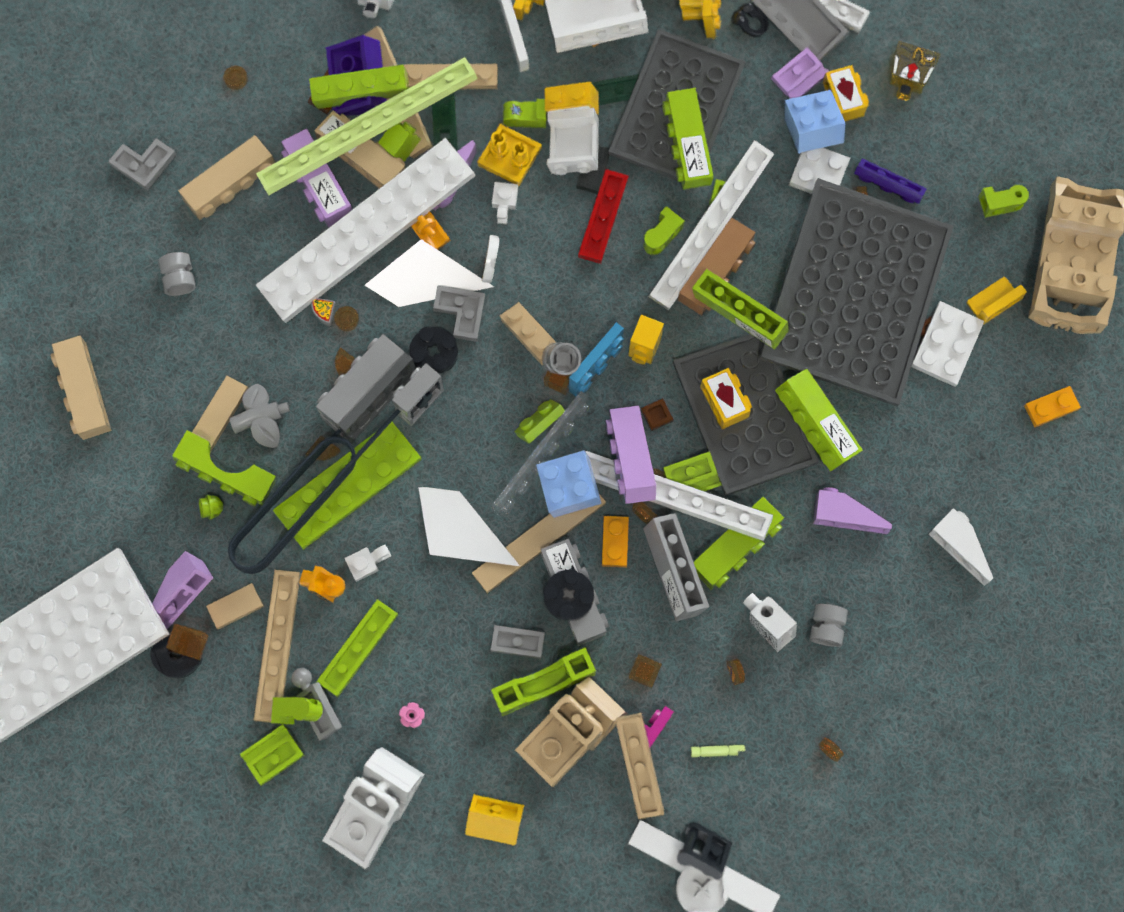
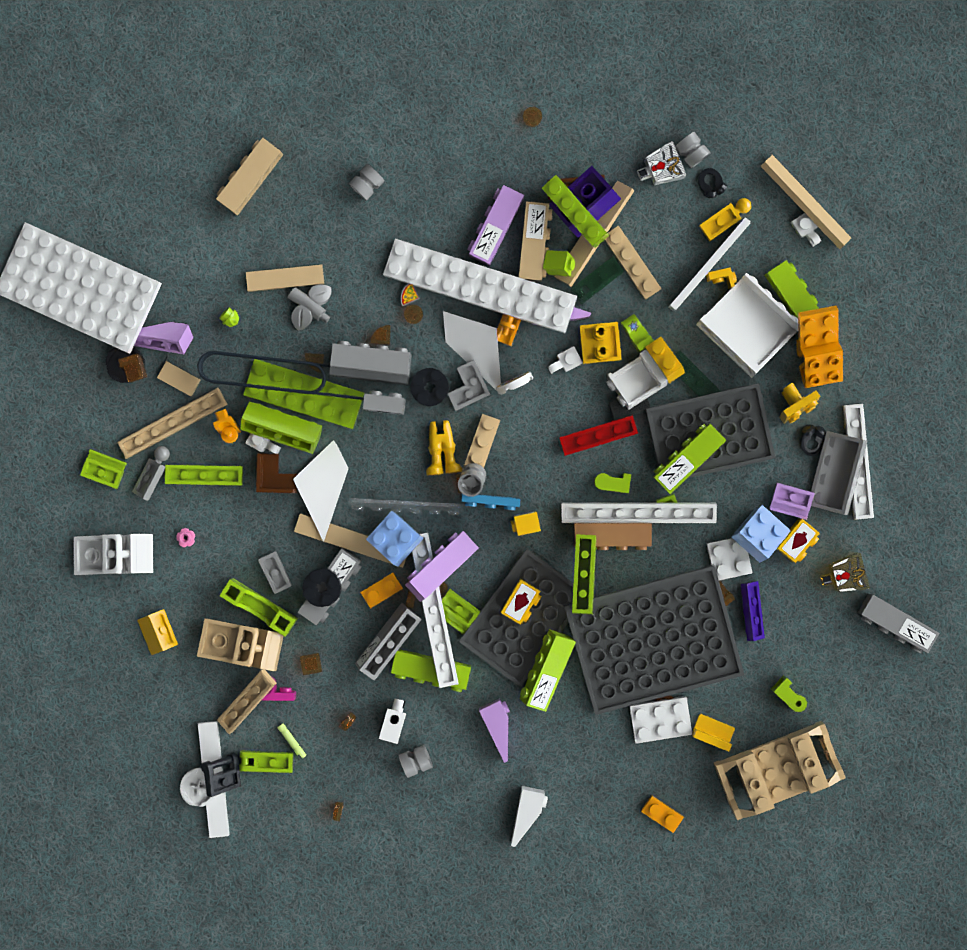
camera: 55 degrees right, 15 degrees up
(144, 168) = (424, 104): light grey plate -> none
(226, 178) = (455, 165): tan brick -> none
(252, 483) = (253, 285): lime arch -> none
(288, 709) = (139, 465): lime leg -> none
(365, 528) = (281, 427): none -> lime brick
(366, 126) = (549, 237): yellowish green plate -> none
(412, 580) = (270, 479): none -> reddish brown panel
(502, 373) = (440, 443): none -> yellow piece
(539, 421) = (427, 489): lime plate -> none
(657, 414) = (484, 561): reddish brown tile -> none
(723, 793) = (266, 761): none -> lime plate
(994, 53) = (898, 623): none -> light grey brick

